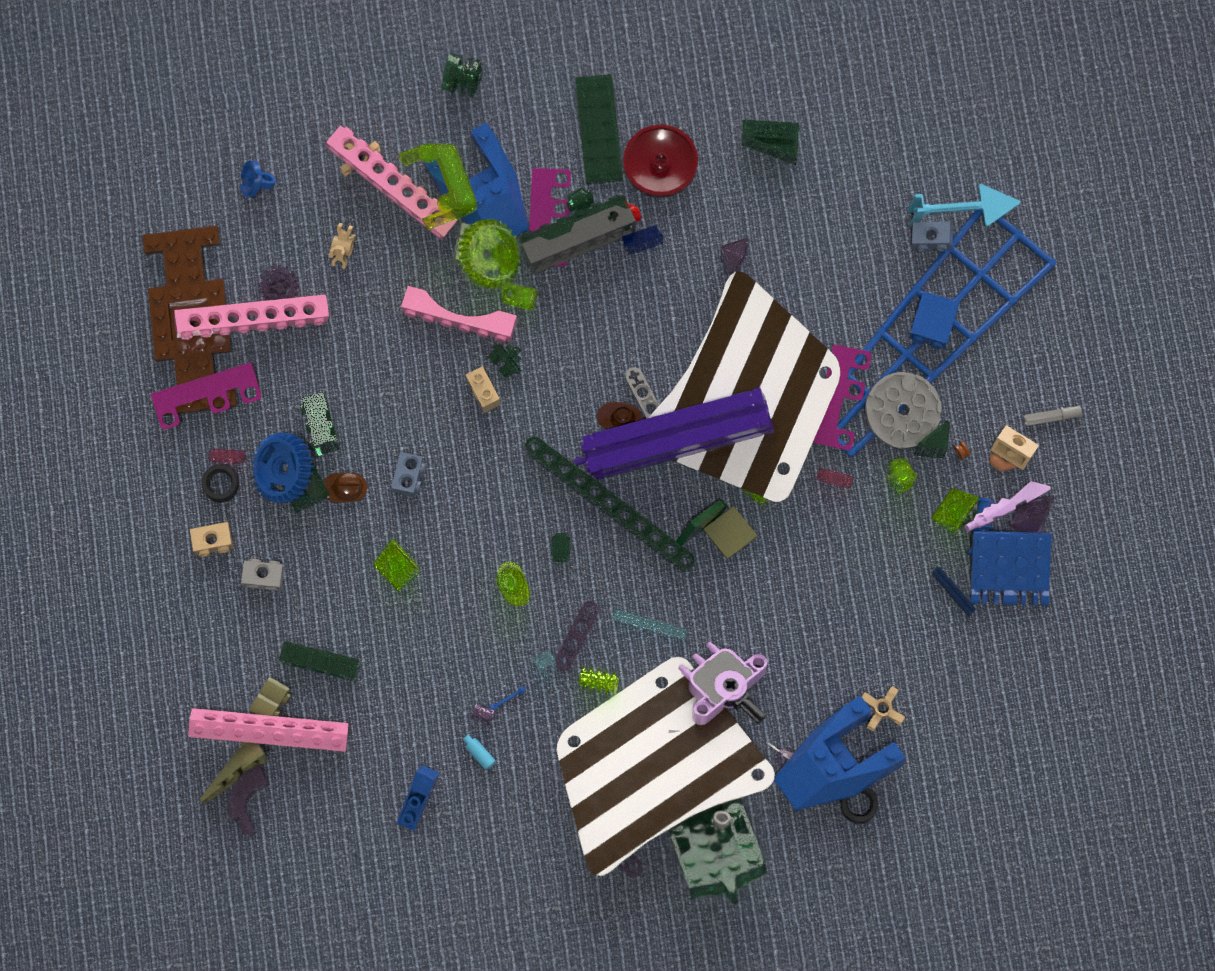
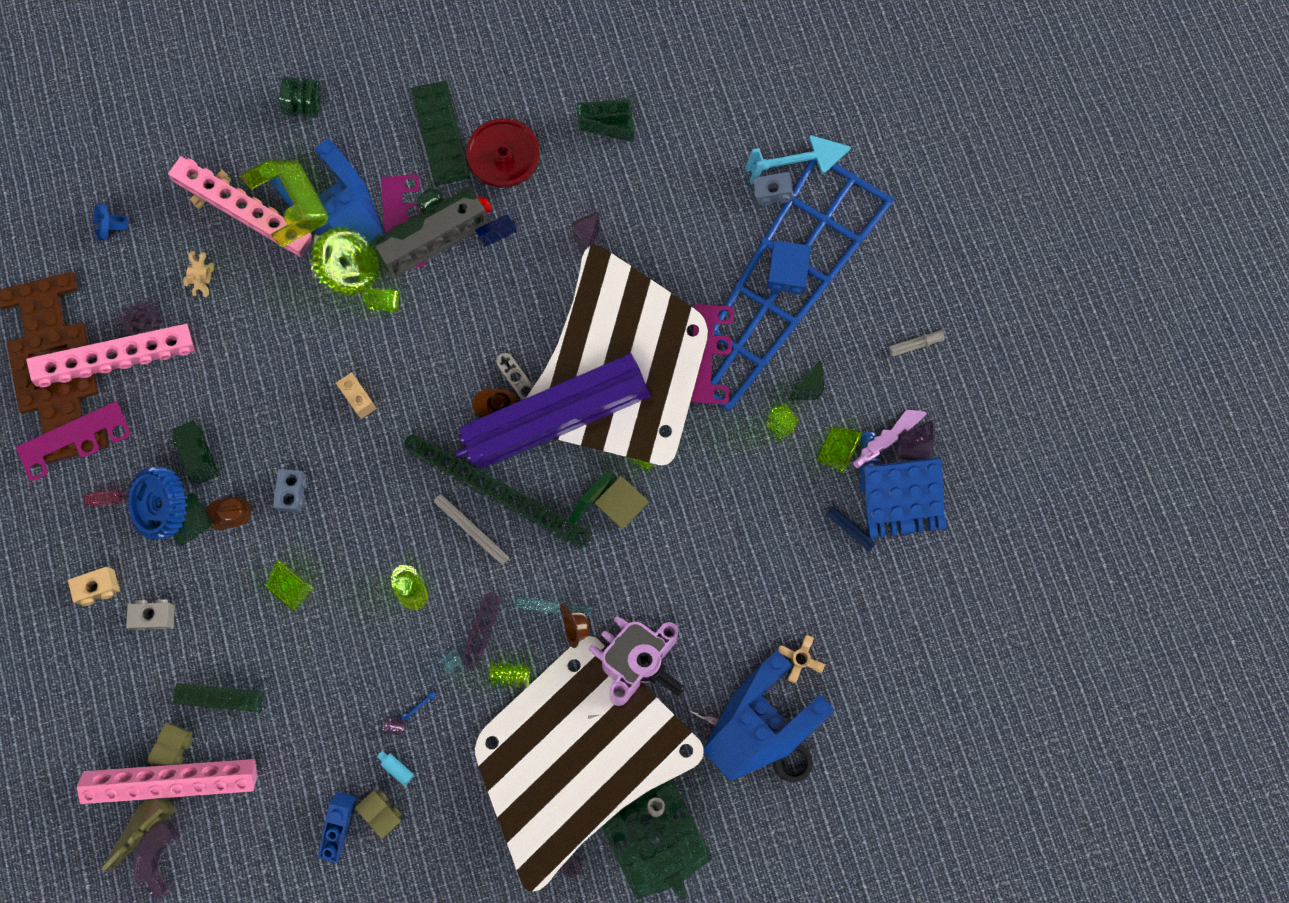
camera: 15 degrees left, 0 degrees up
(220, 497) = (85, 520): black tyre -> none
(459, 791) = (379, 813): none -> olive brick
(497, 324) = (361, 330): bright pink arch -> none
(500, 353) = (378, 361): clear green hips -> none
(560, 547) = (453, 542): clear green brick -> none
(579, 537) = (471, 529): none -> light grey axle
(668, 644) = (575, 625): none -> reddish brown piece
(834, 478) = (716, 433): clear pink beam -> none
(883, 409) = (754, 362): light grey plate -> none
(961, 450) = (835, 389): dark orange bush -> none
(1000, 464) = (875, 397): nougat arm -> none
(1014, 447) = (886, 379): tan brick -> none

